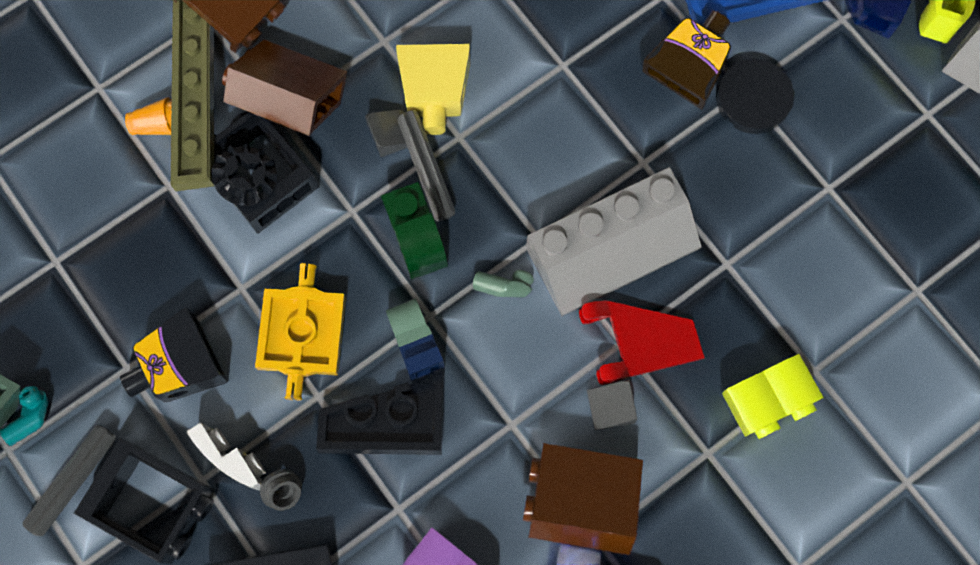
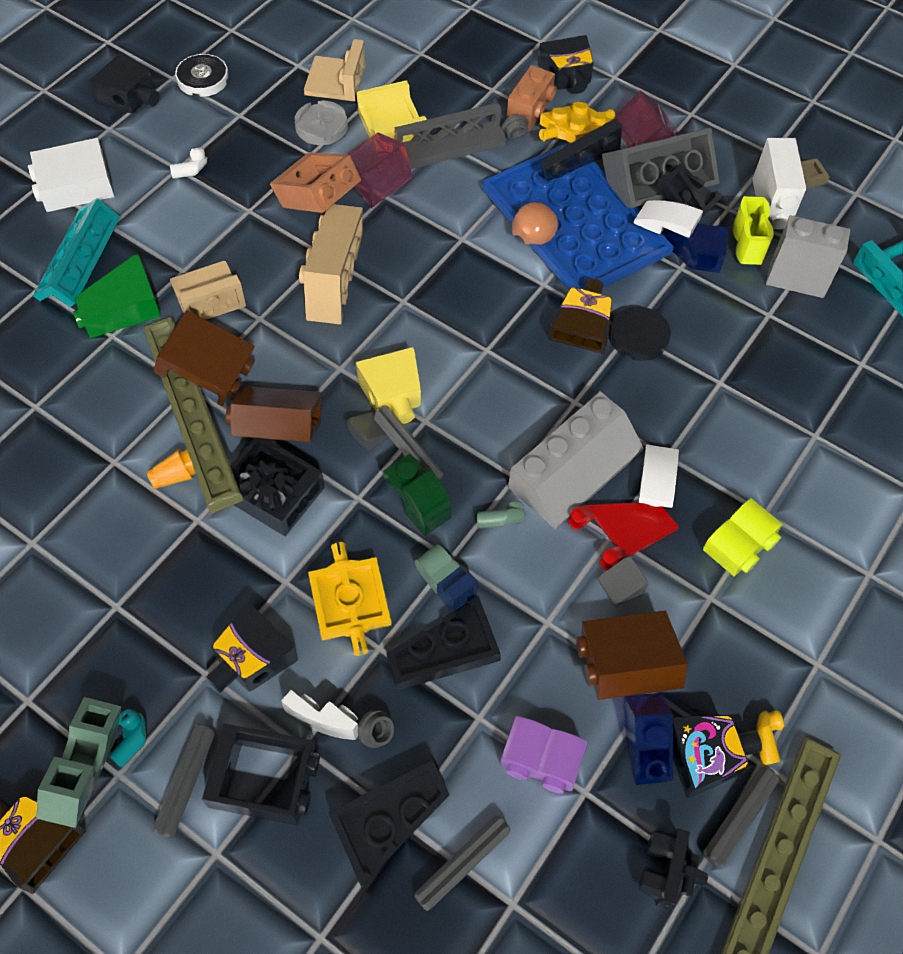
camera: 20 degrees left, 15 degrees down
(703, 290) = (659, 476): none -> white slope

